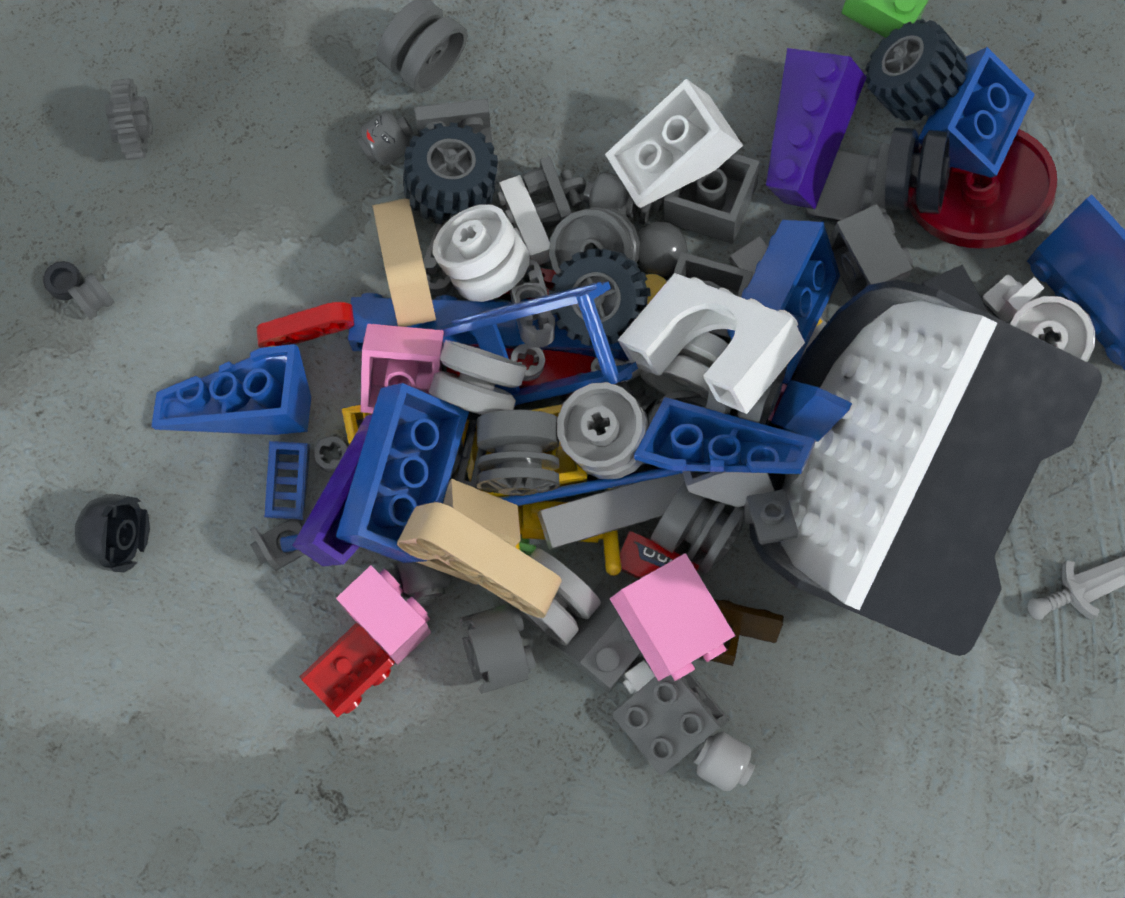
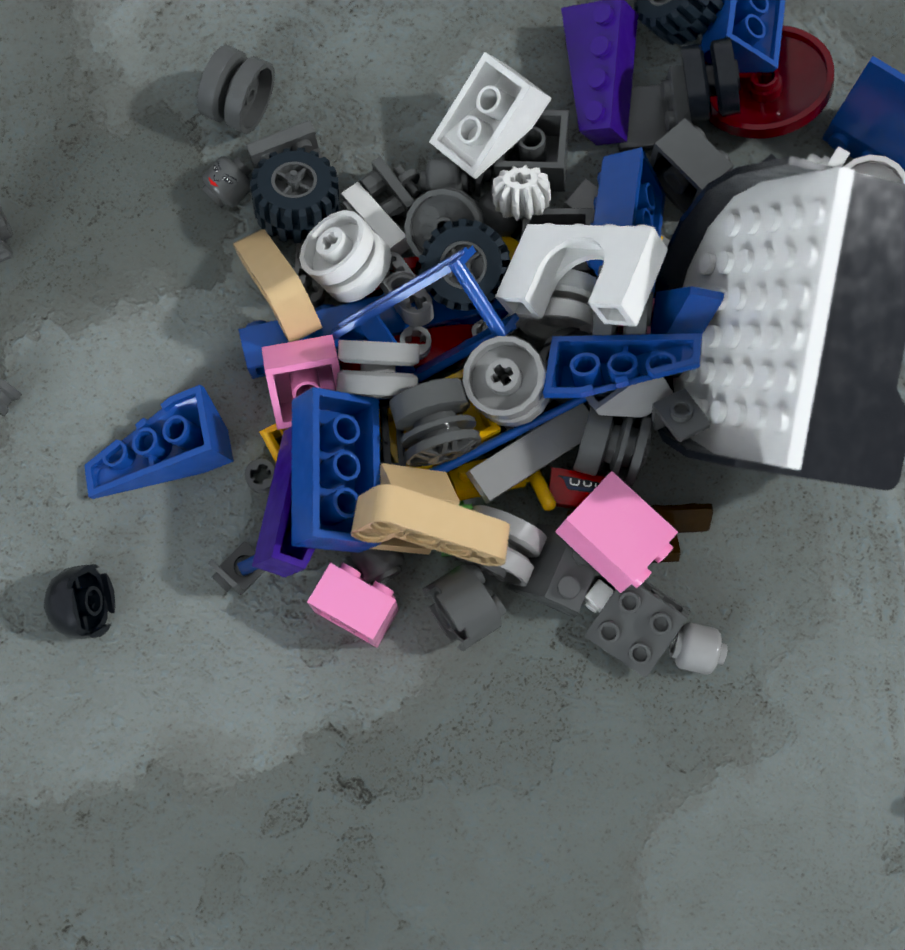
camera: 15 degrees left, 0 degrees up
(288, 448) = (219, 481): blue slope -> none
(306, 325) = (205, 365): red beam -> none
(348, 670) = (335, 666): red bracket -> none
(682, 235) = (521, 192): none -> white gear

